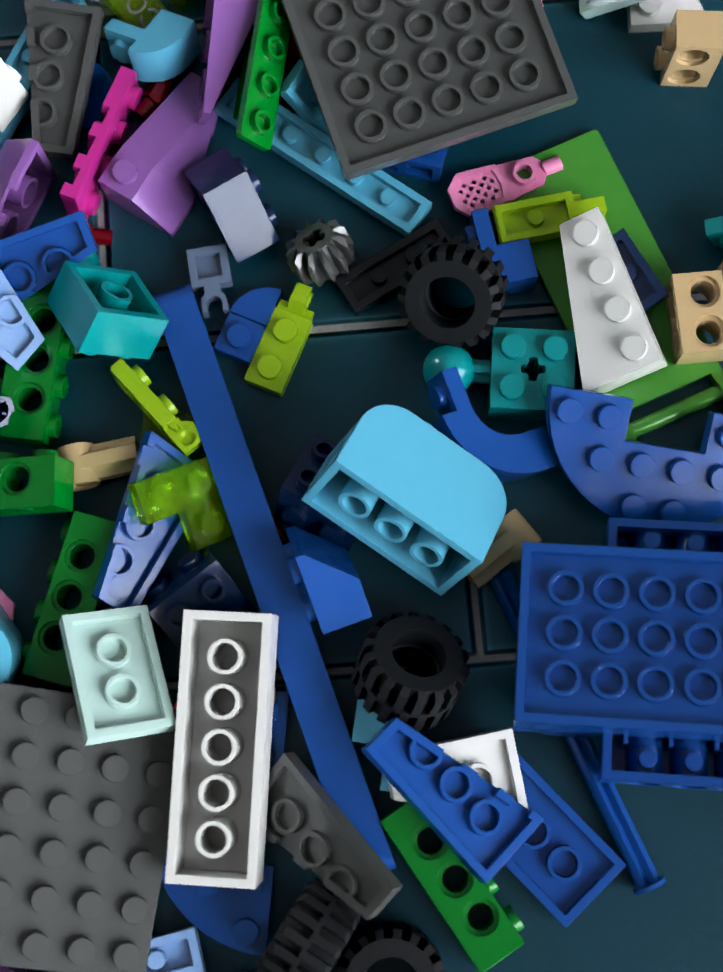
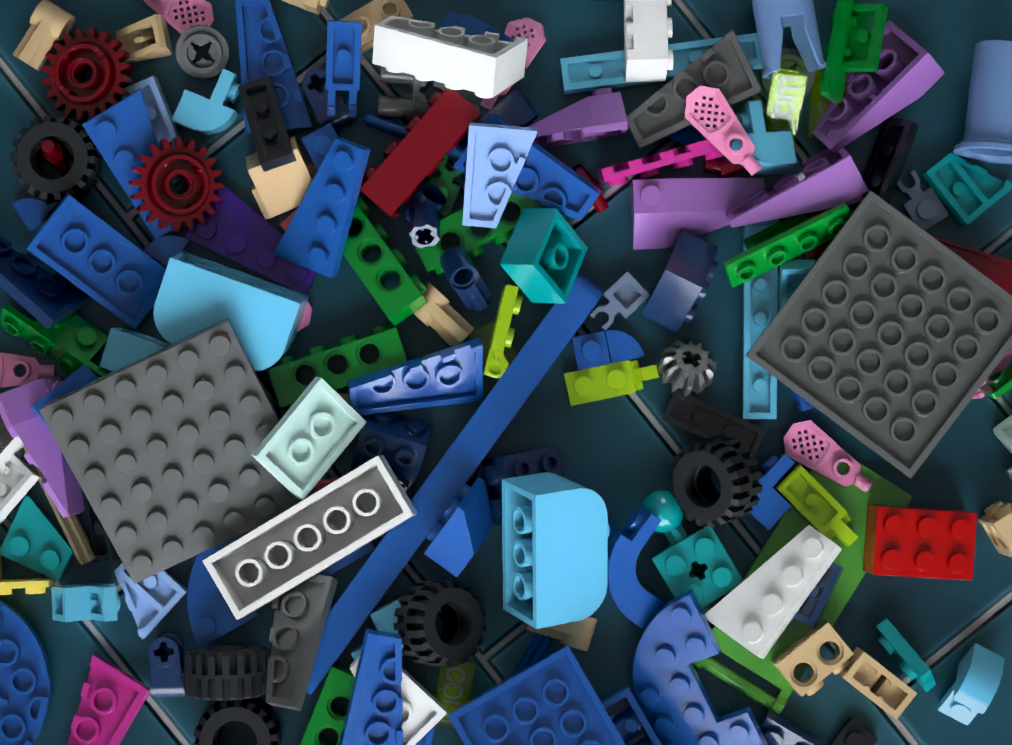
camera: 50 degrees right, 10 degrees up
(78, 407) = (465, 278): none -> dark blue piece
(111, 62) = (724, 131): none -> bright pink piece
(191, 494) = (457, 394): clear neon green plate -> none
(489, 705) = (454, 687): none -> clear neon green tile
(646, 142) = (919, 542): none -> red brick

